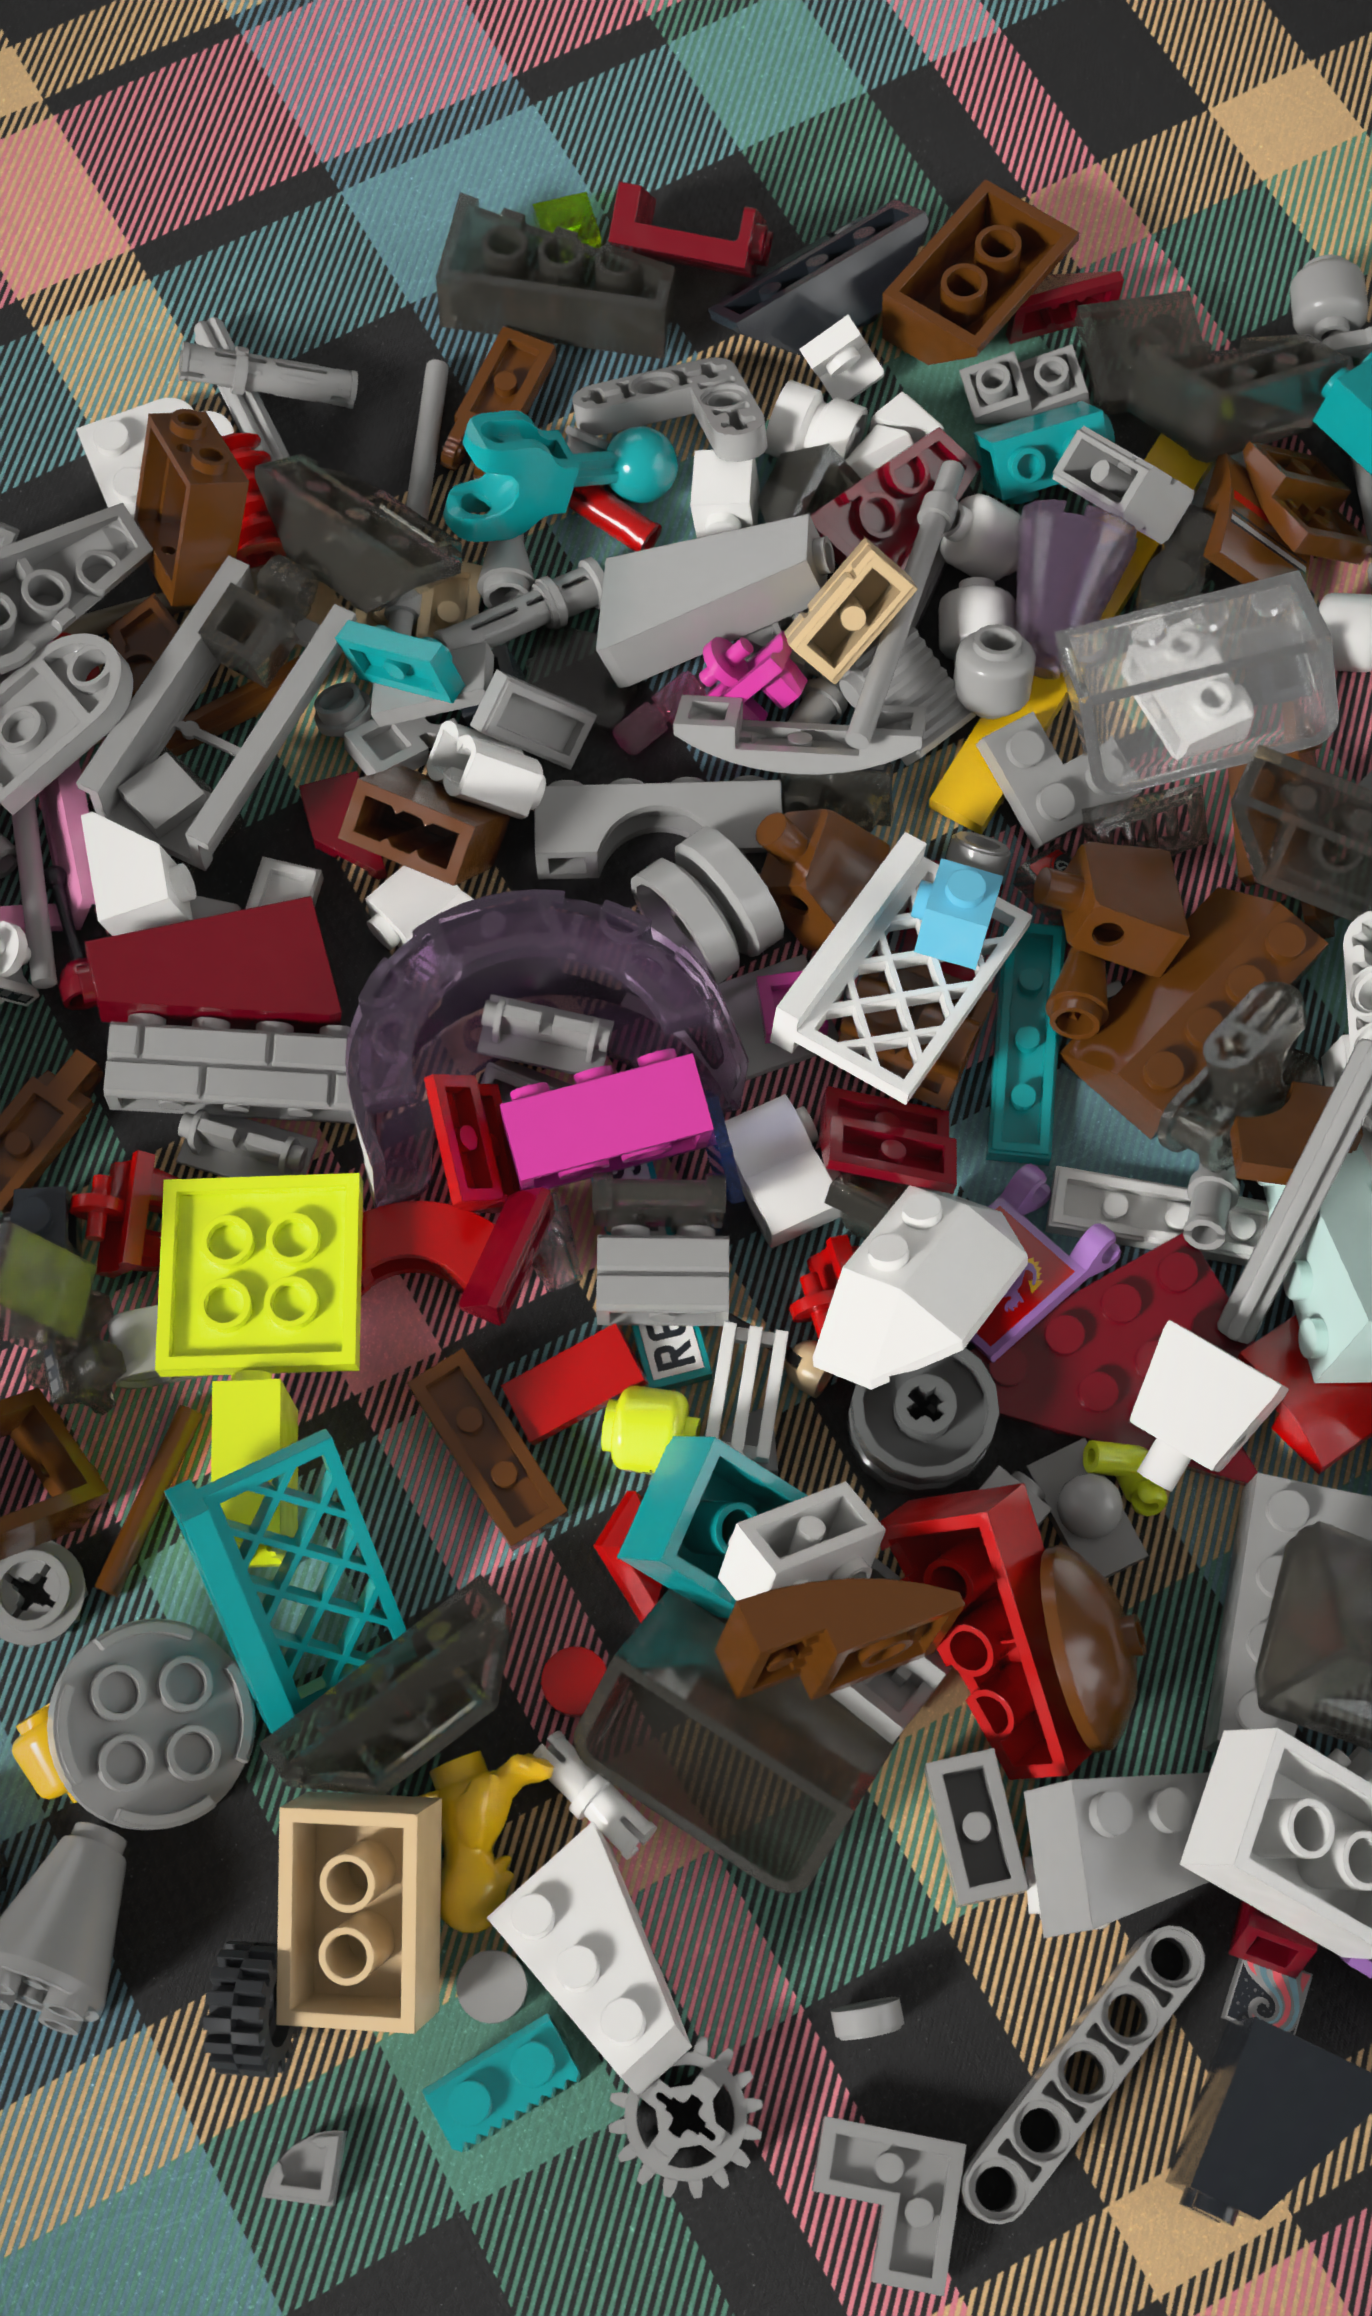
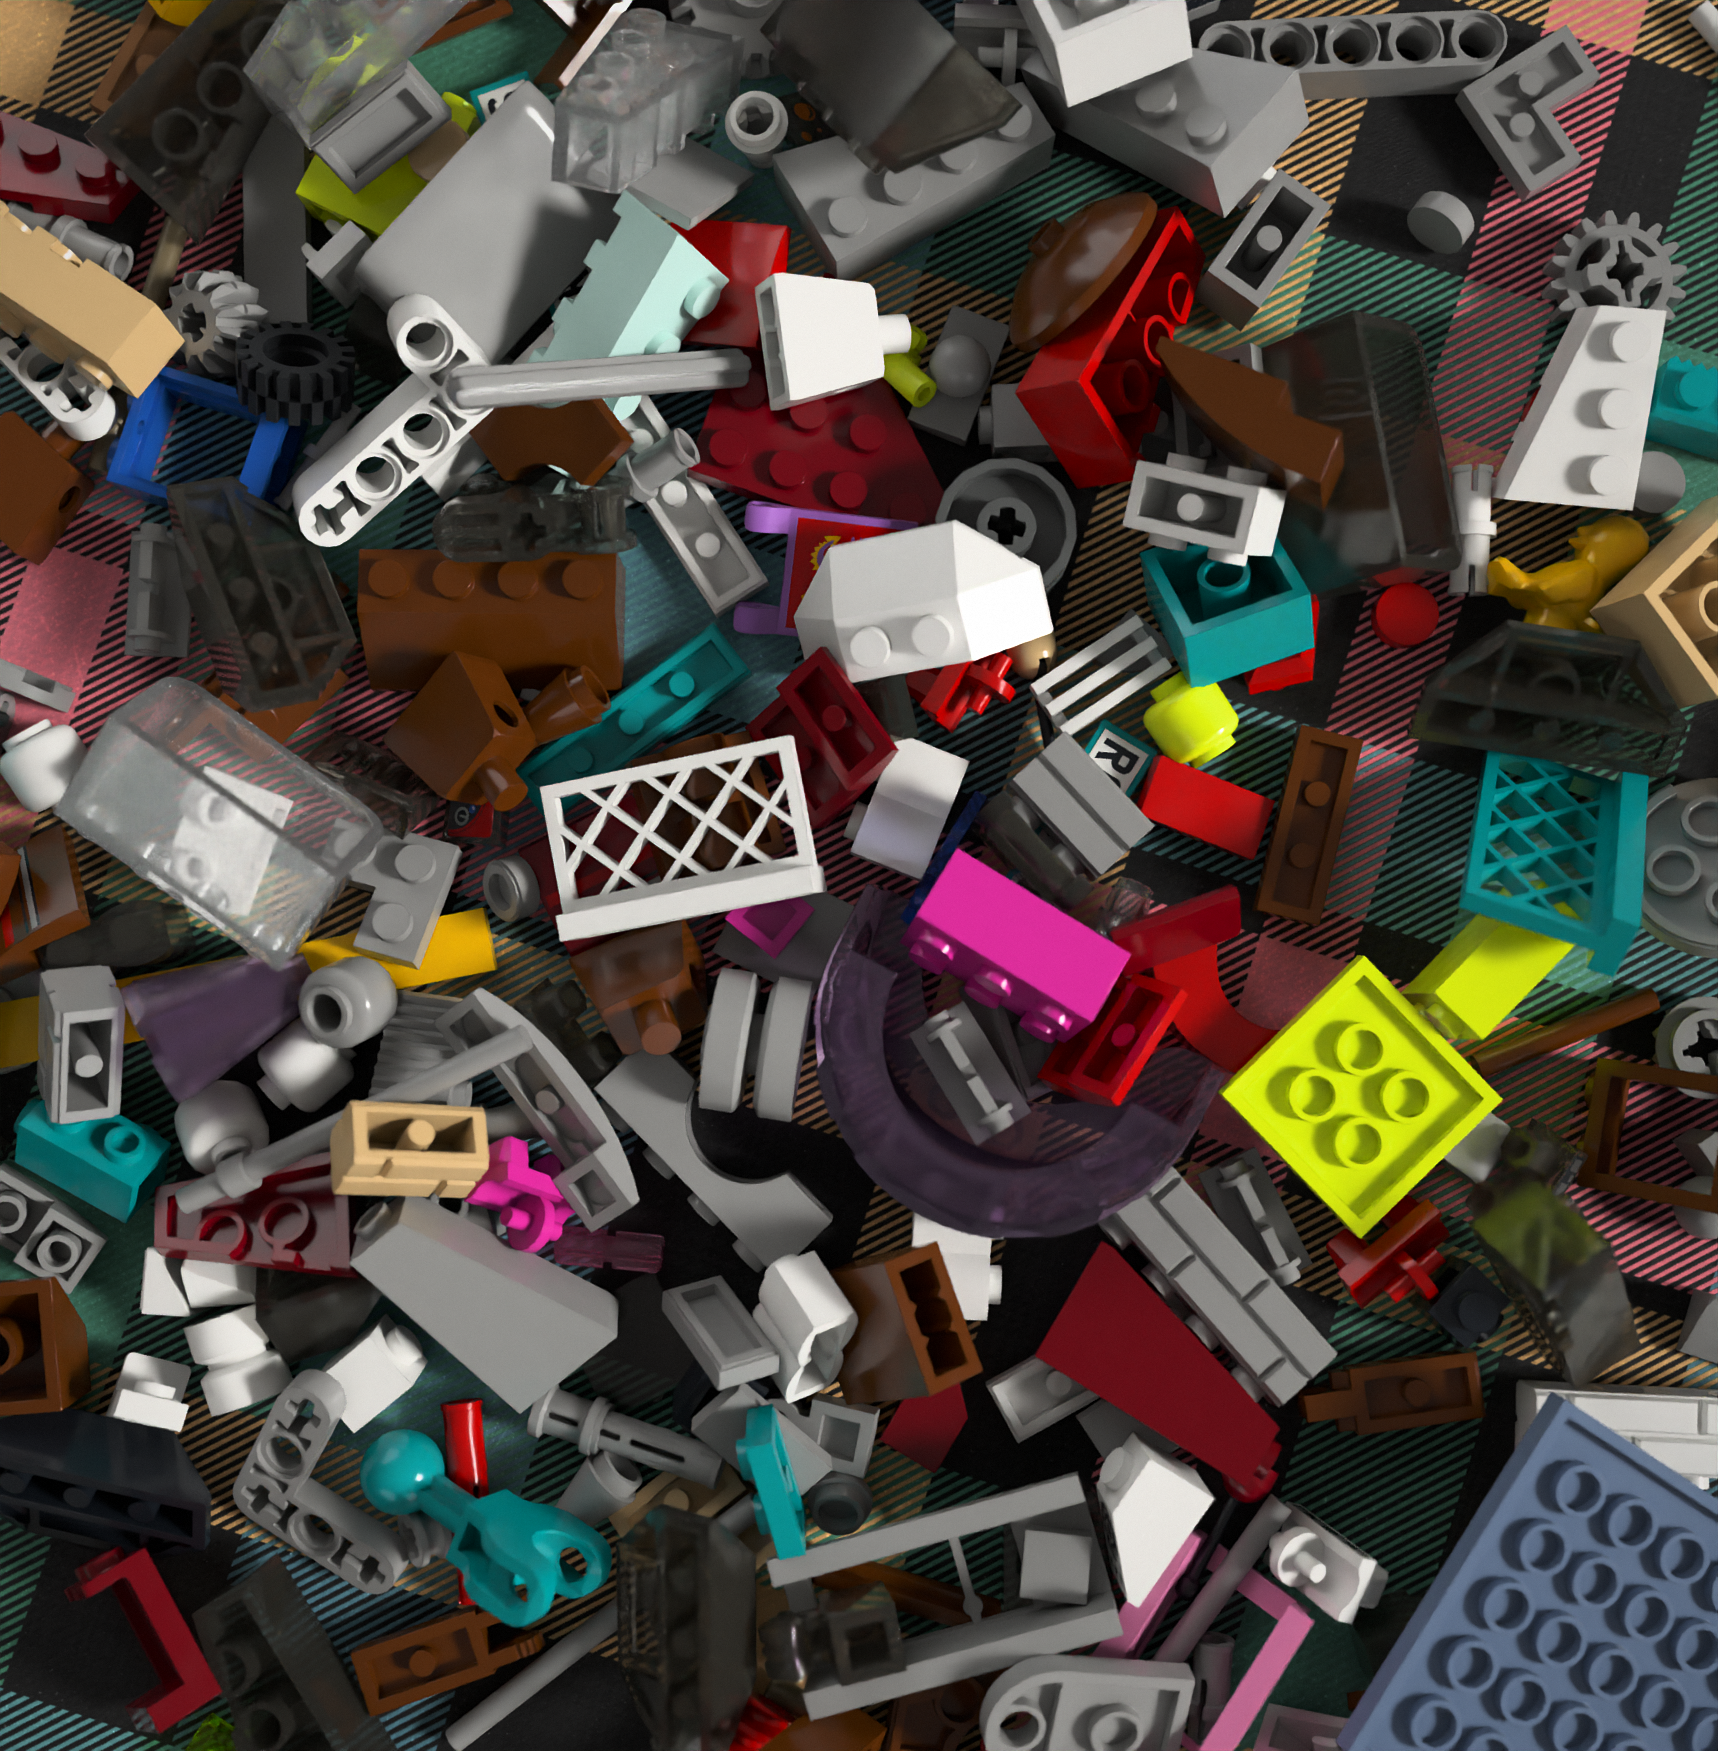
camera: 125 degrees left, 15 degrees up
(955, 912) = (603, 830): medium azure brick -> none

